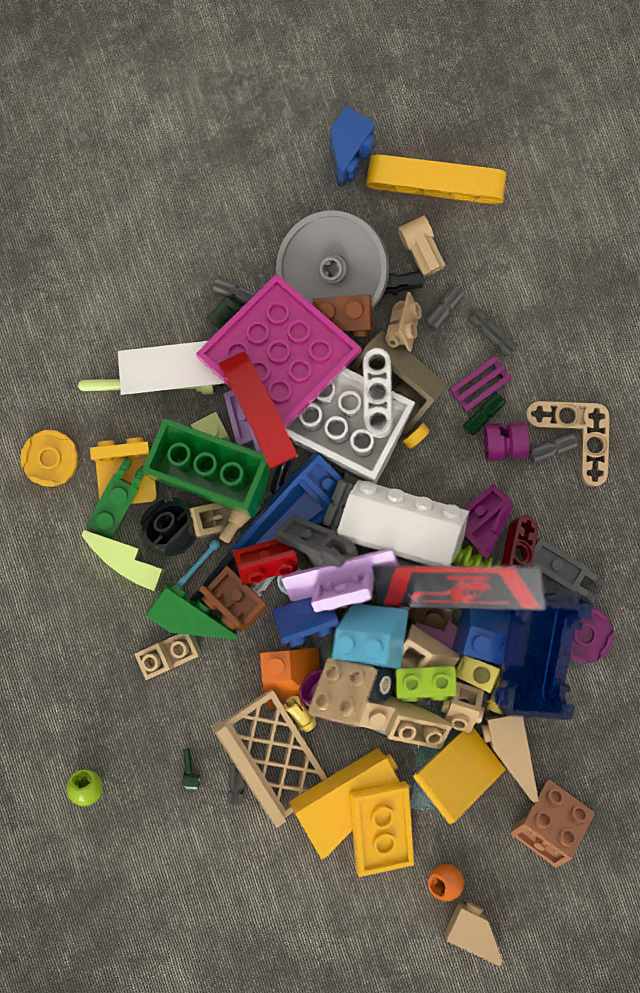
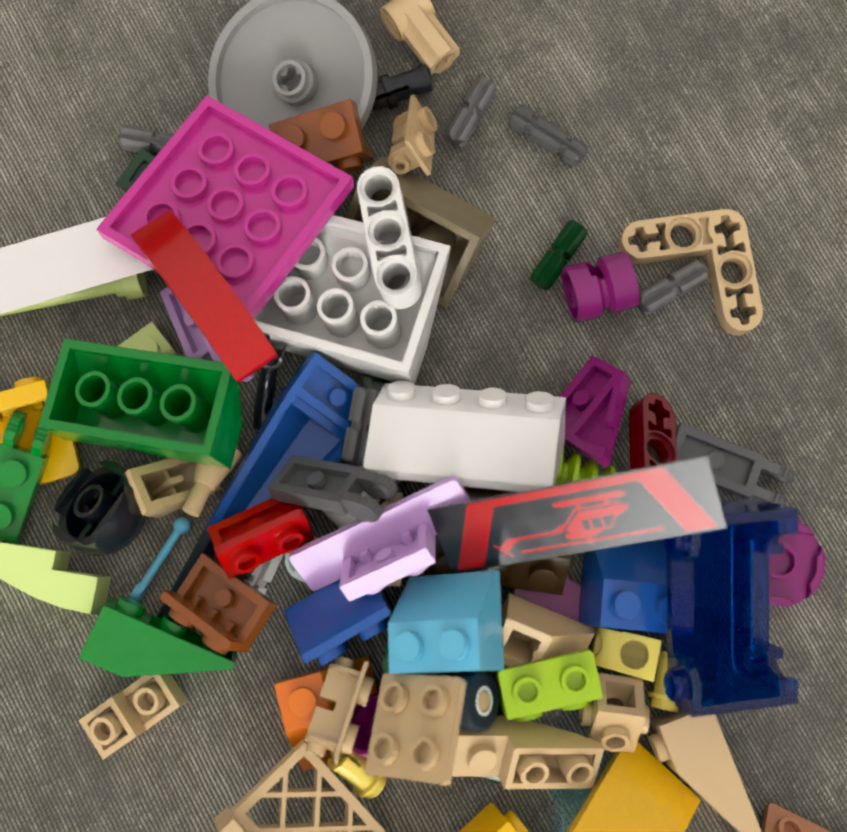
camera: 10 degrees left, 5 degrees down
(292, 685) = (334, 728): none -> tan hinge
(416, 435) = (462, 303): yellow tile -> none
(500, 369) = (568, 187): magenta tile -> none

